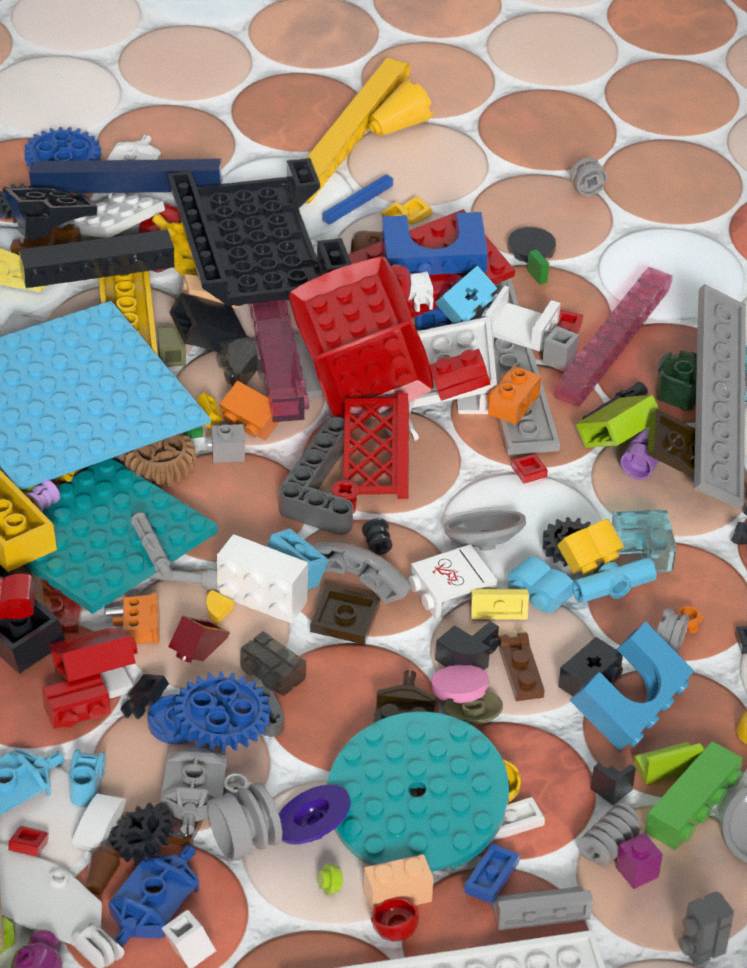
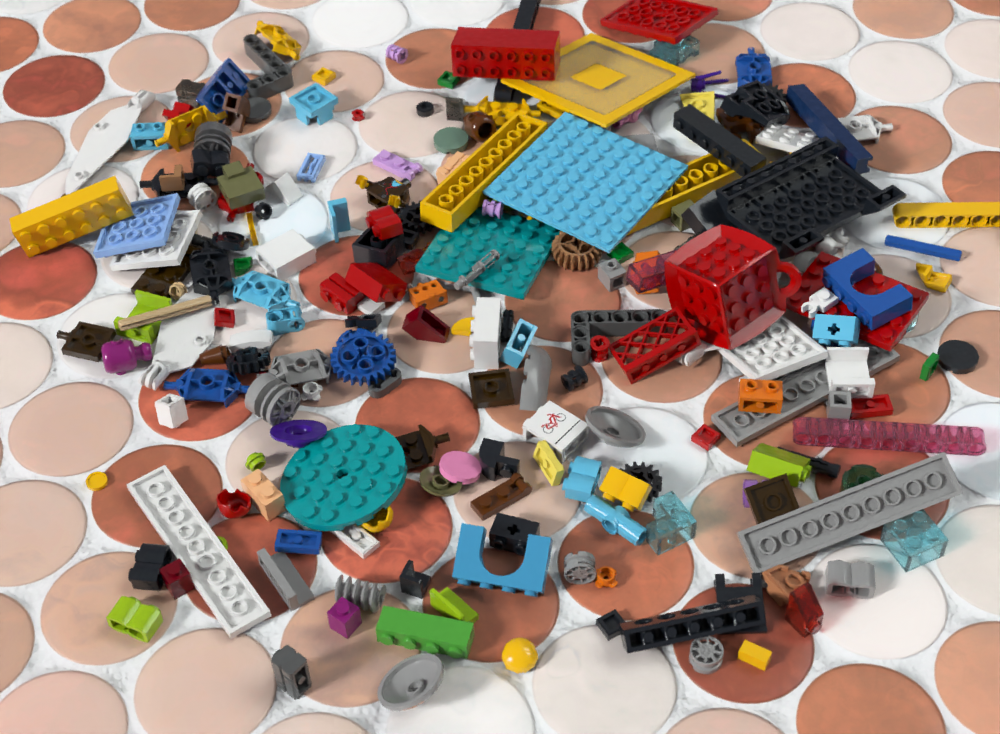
camera: 70 degrees right, 5 degrees up
(62, 146) = (838, 95): blue gear -> none
(211, 408) = (630, 256): yellow piece -> none
(272, 663) = (423, 368): clear smoke brick -> none
(460, 374) = (744, 354): red brick -> none

